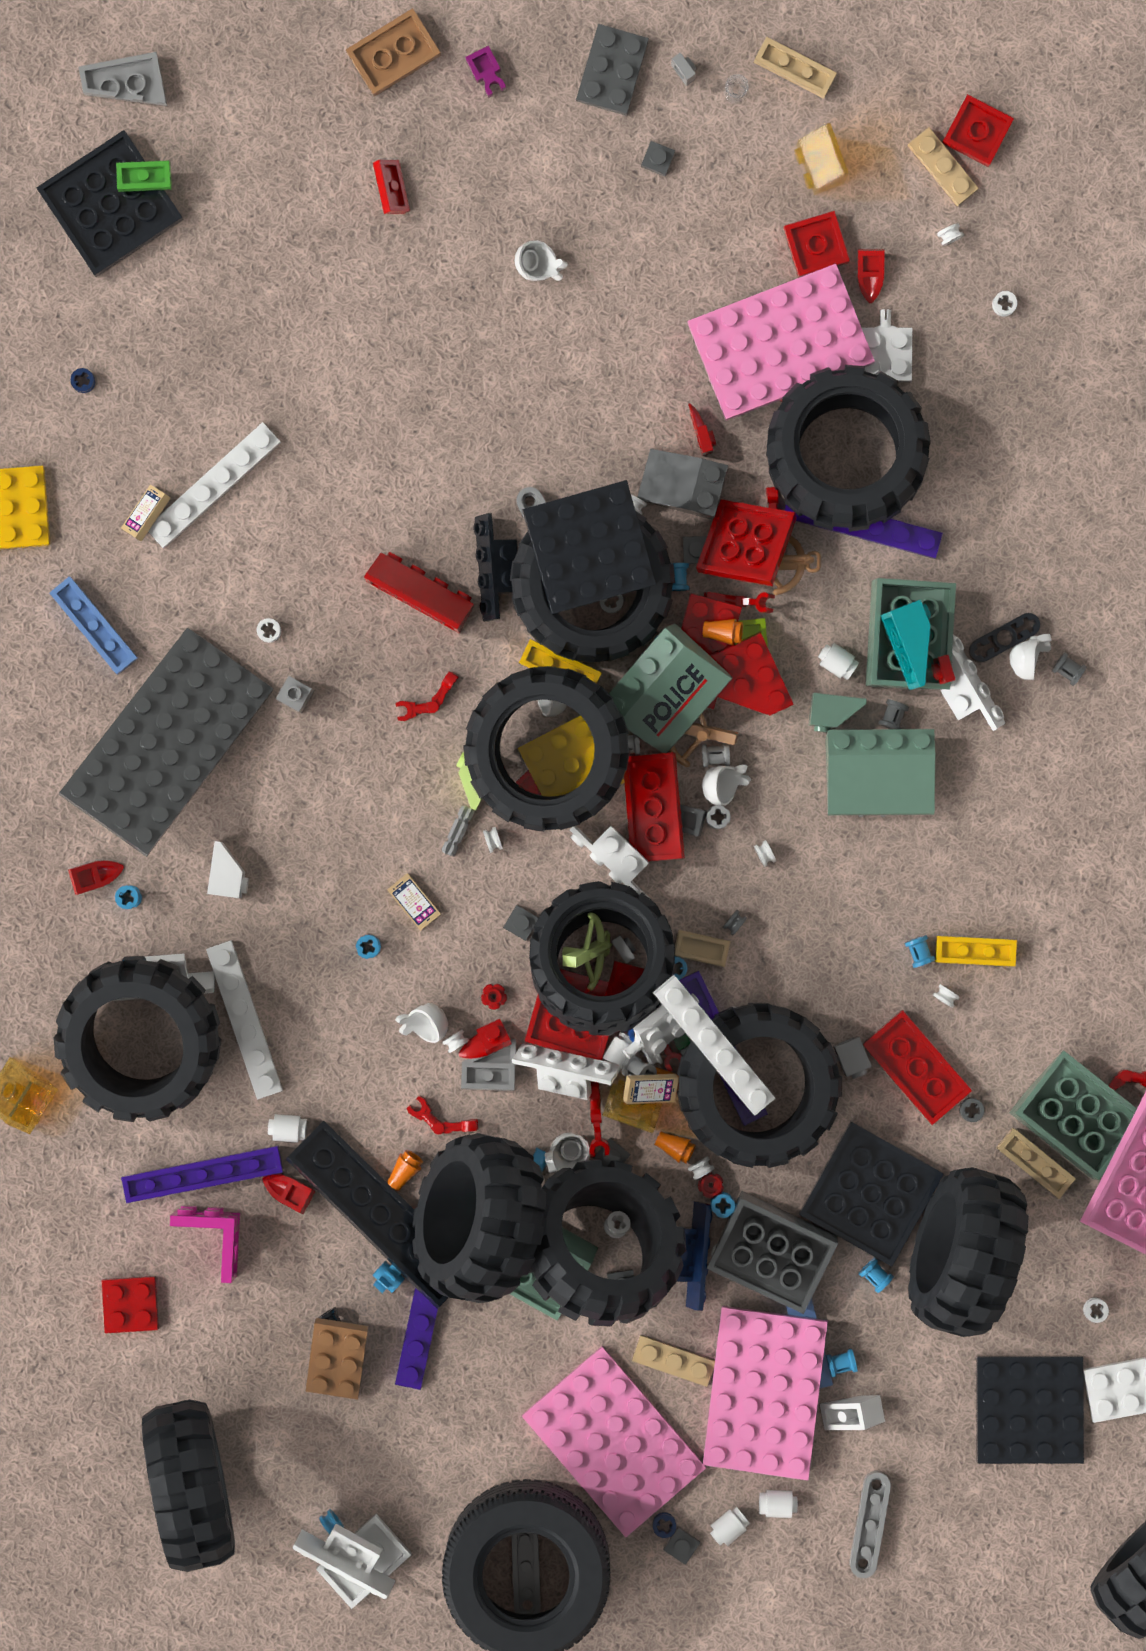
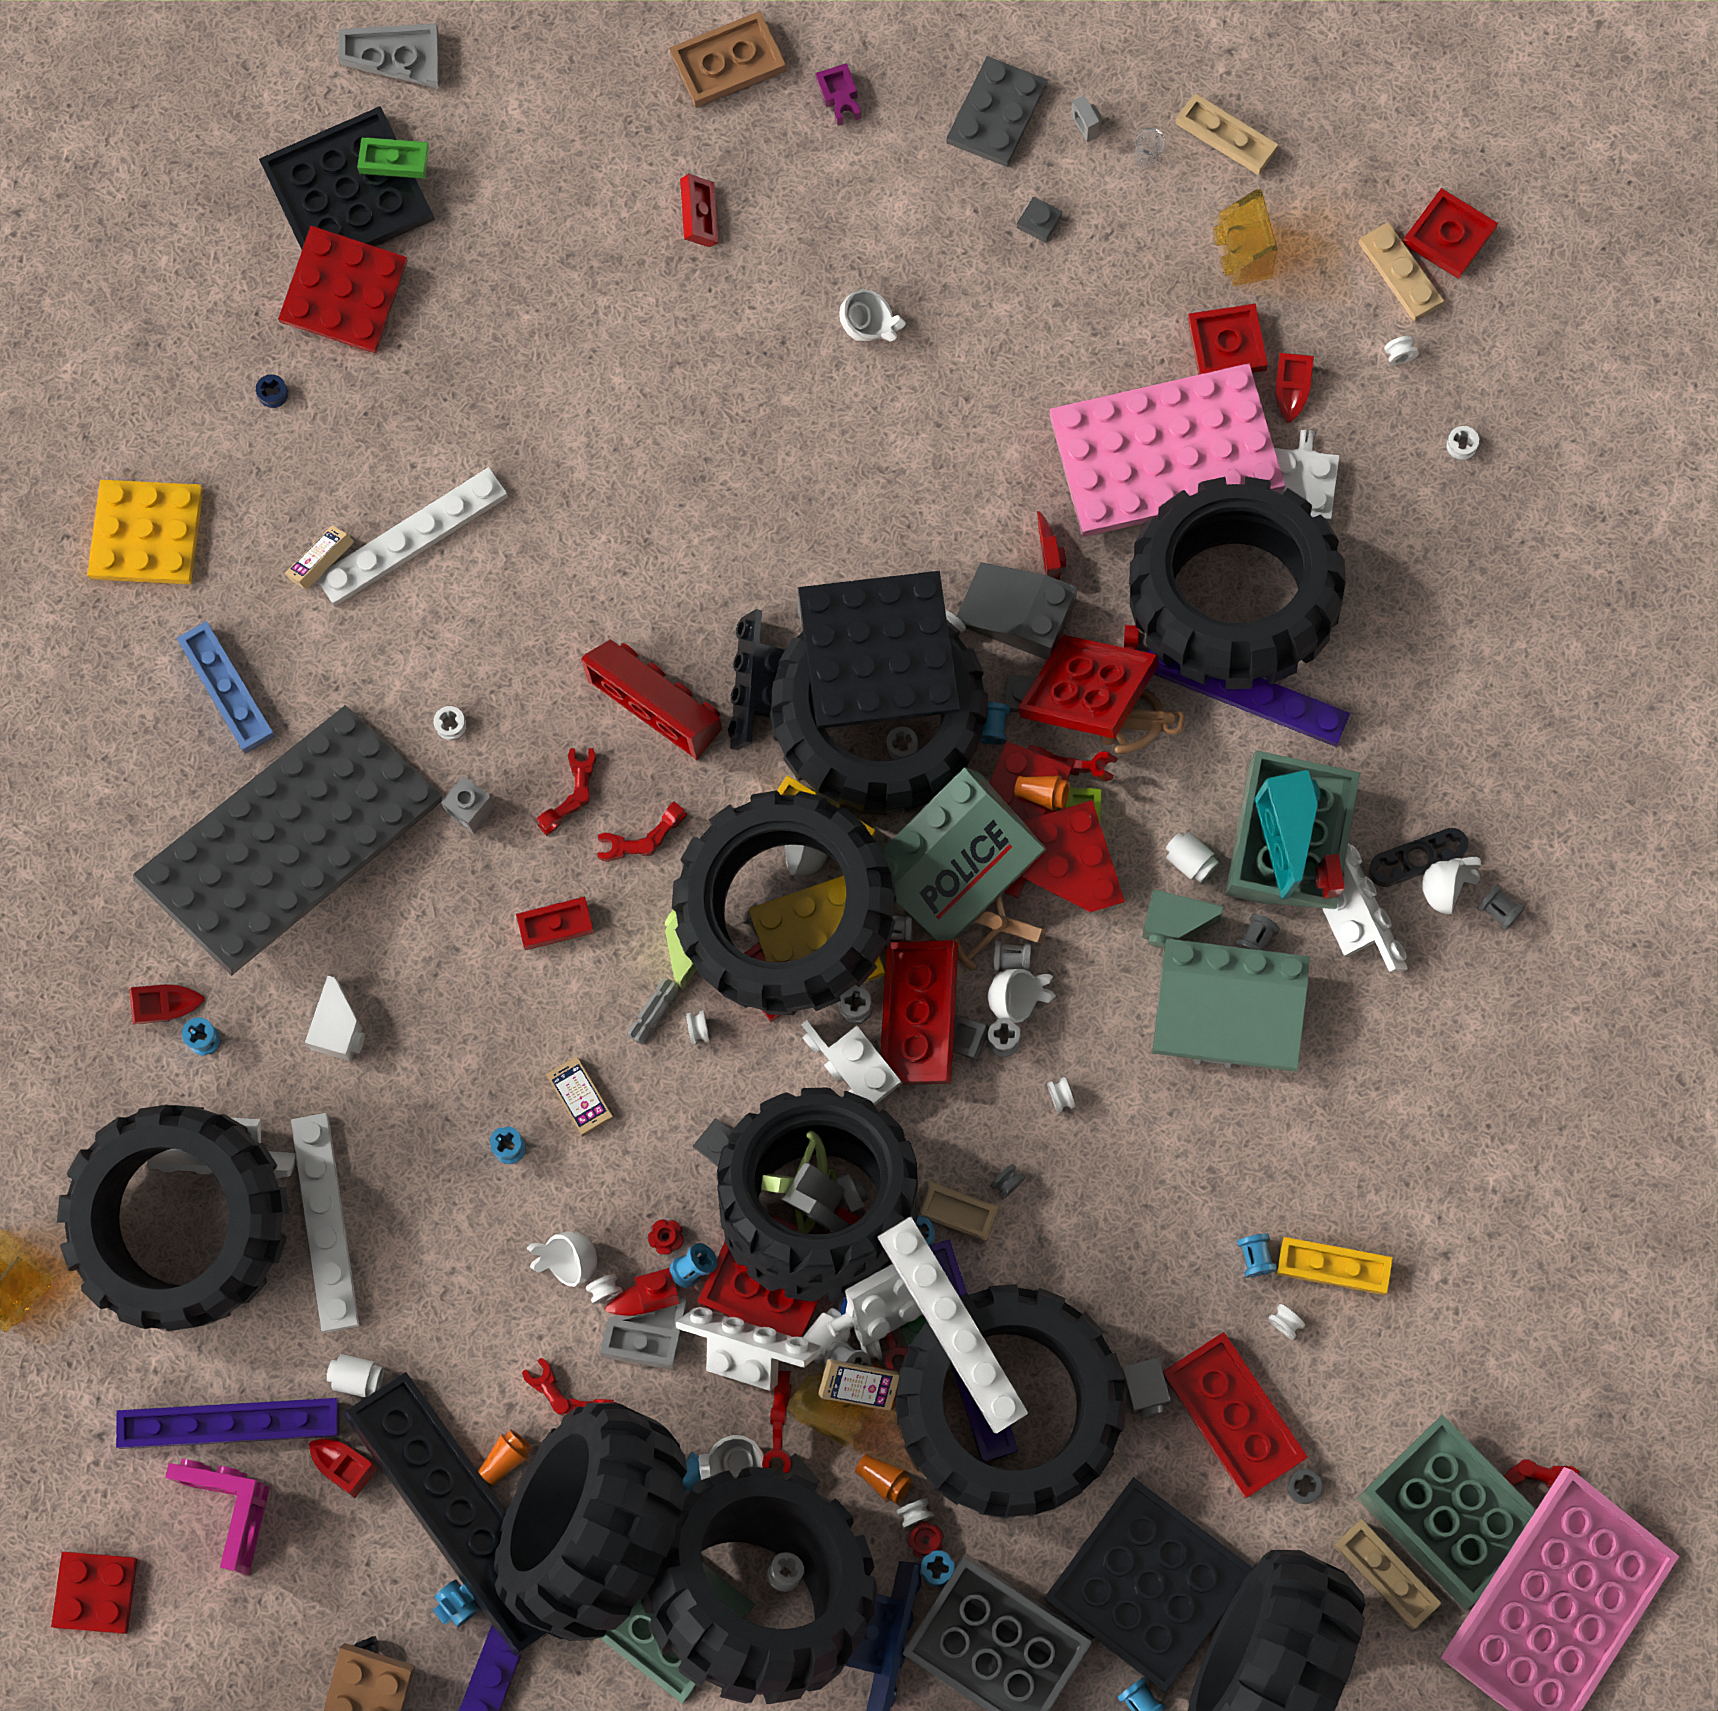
camera: 15 degrees right, 15 degrees down
(123, 290) = (343, 289): none -> red plate
(374, 775) = (555, 923): none -> red plate
(377, 672) = (581, 771): none -> red piece
(520, 1014) = (693, 1265): none -> dark azure bush
(599, 963) = (816, 1197): none -> light grey panel
(612, 813) = (863, 1012): none -> light grey bush

